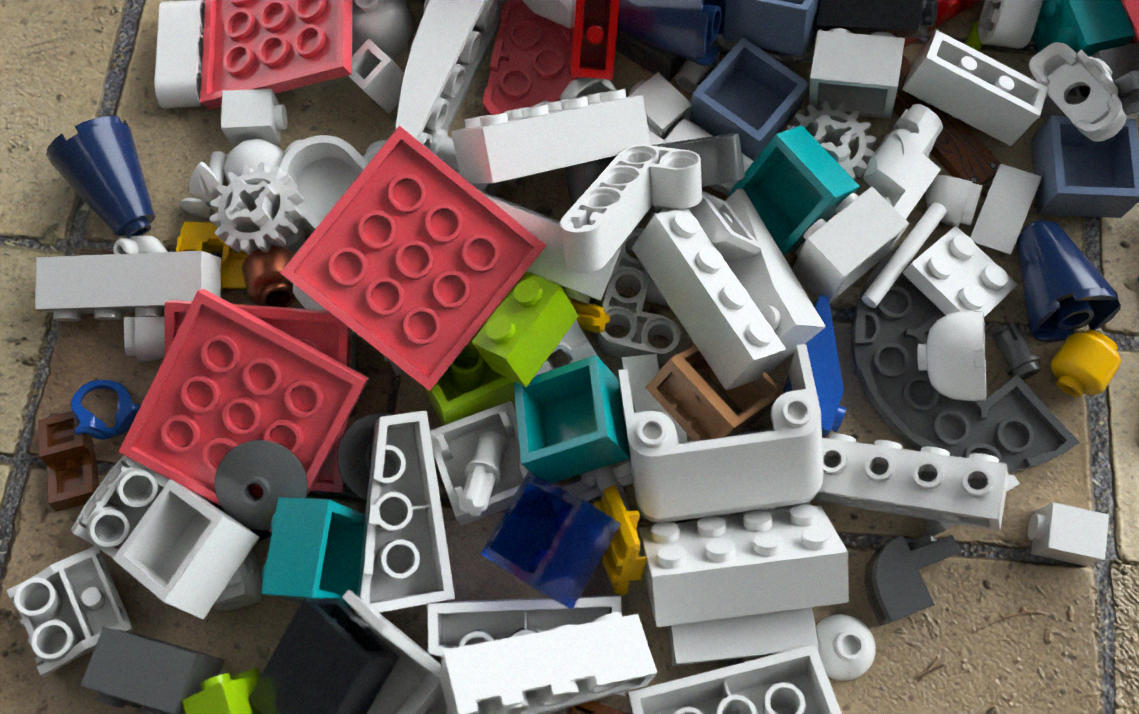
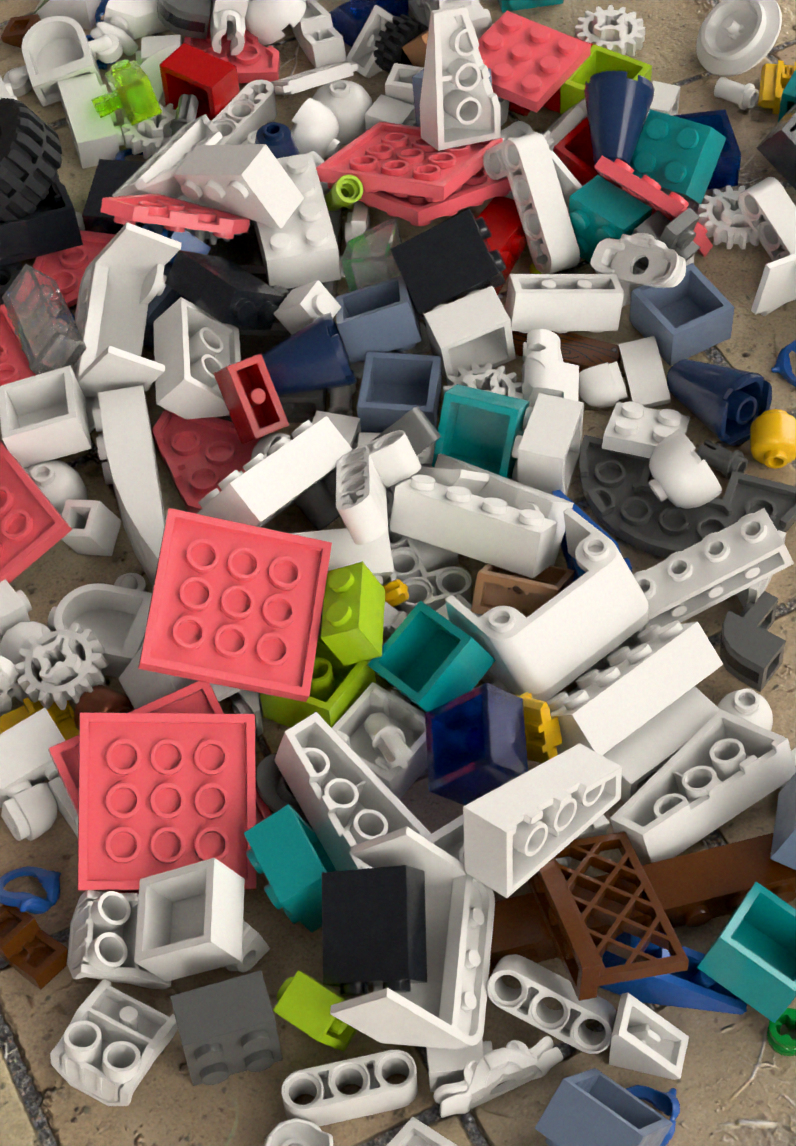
camera: 30 degrees left, 20 degrees down
(261, 463) = (212, 823): dark grey dish -> none
(904, 255) = (594, 436): white bar -> none

